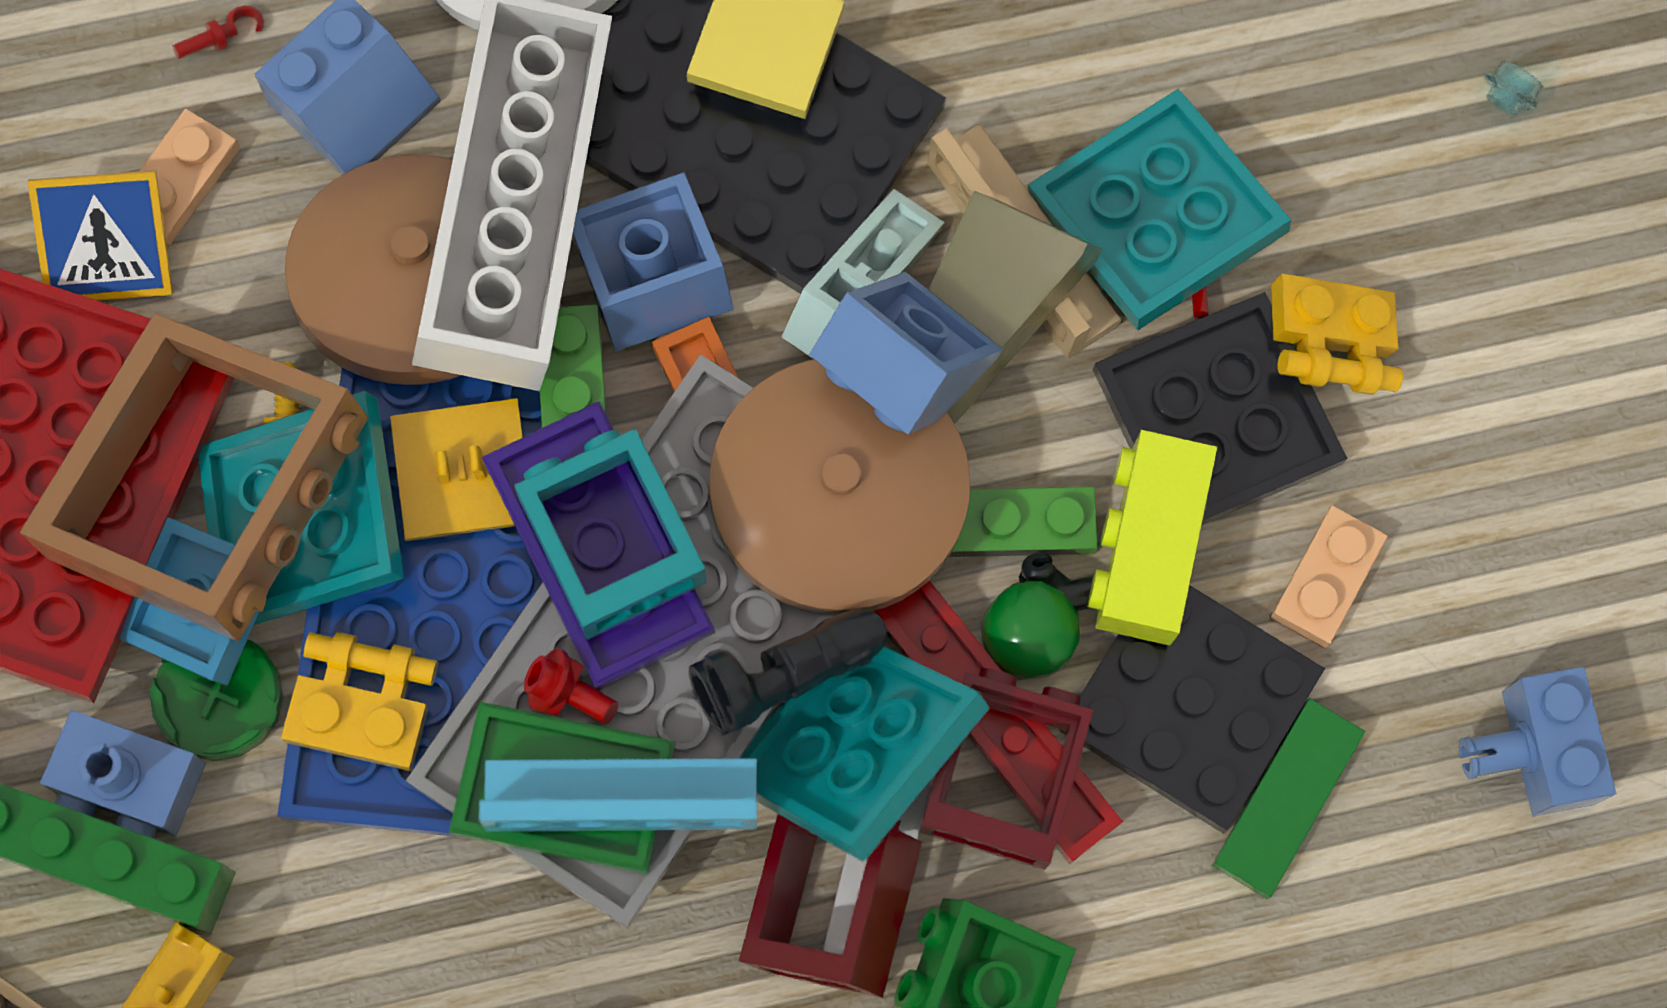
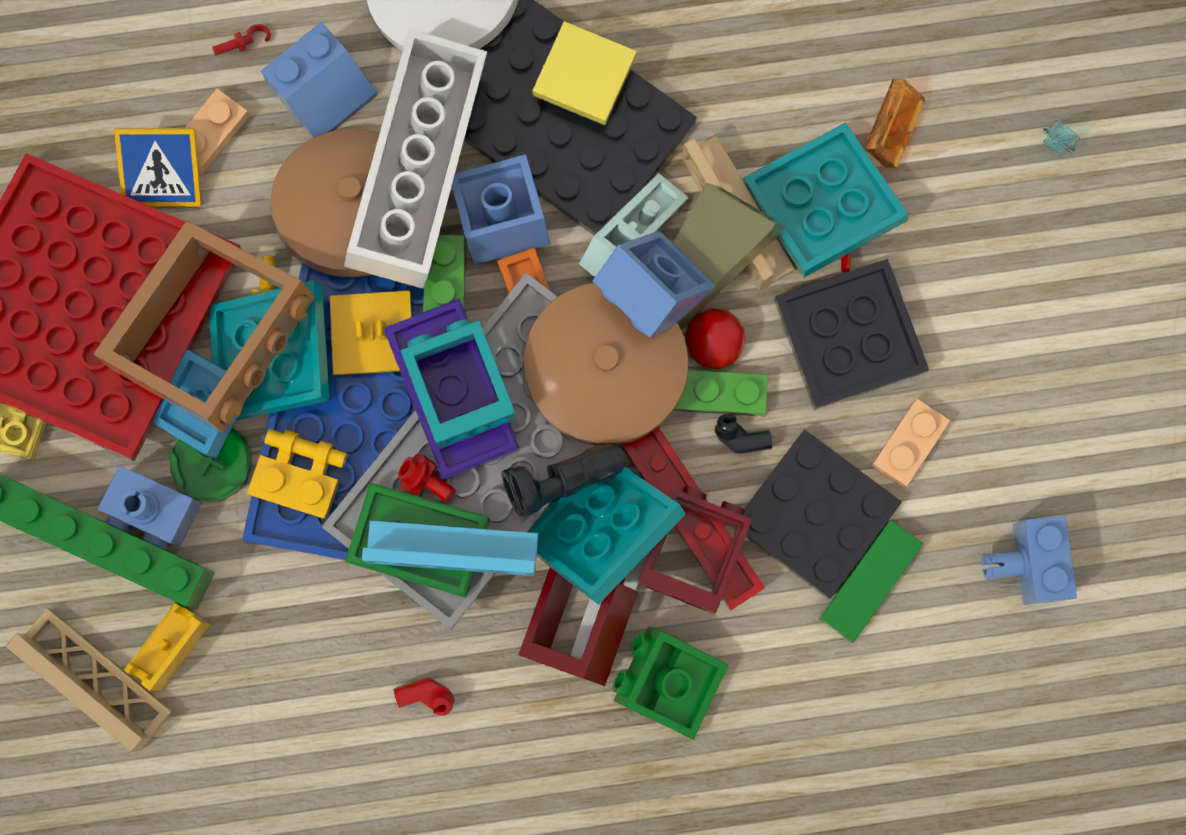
camera: 10 degrees right, 5 degrees up
(1007, 437) = (715, 338): none -> red hair
(1031, 630) = (718, 462): green hair -> none
(1152, 537) = (800, 411): neon yellow brick -> none
(1255, 84) = (894, 123): none -> clear orange plate
(1337, 318) = (933, 279): yellow plate -> none

